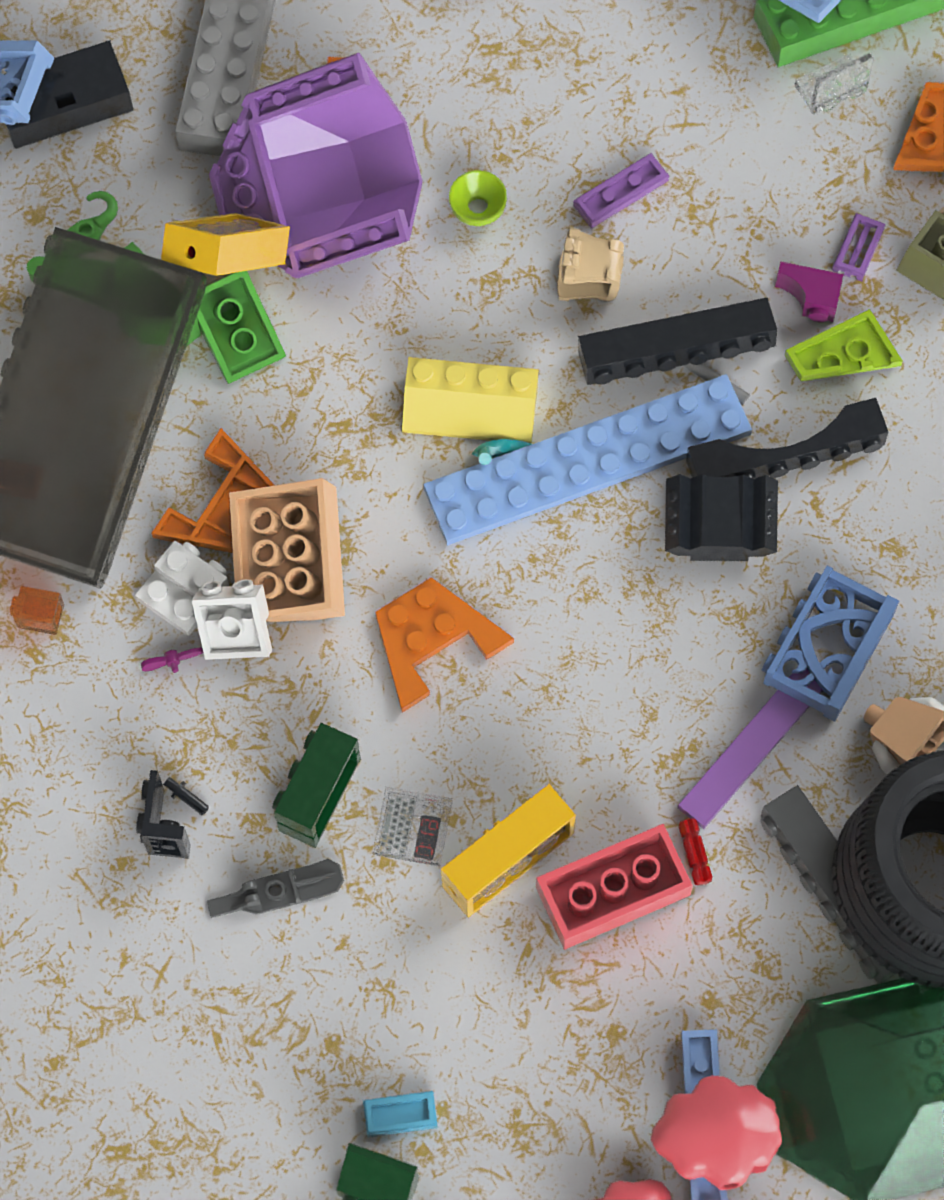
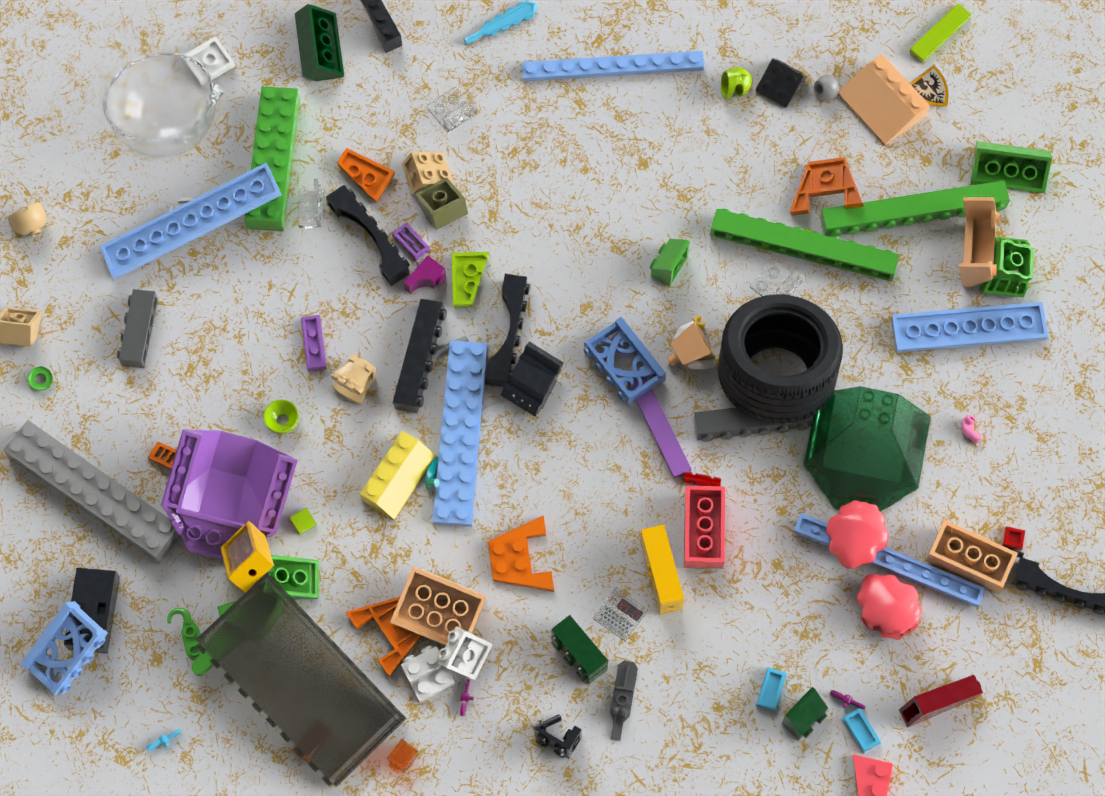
camera: 65 degrees left, 0 degrees up
(335, 307) = (303, 521): none -> lime tile
(803, 235) = (344, 204): none -> black arch

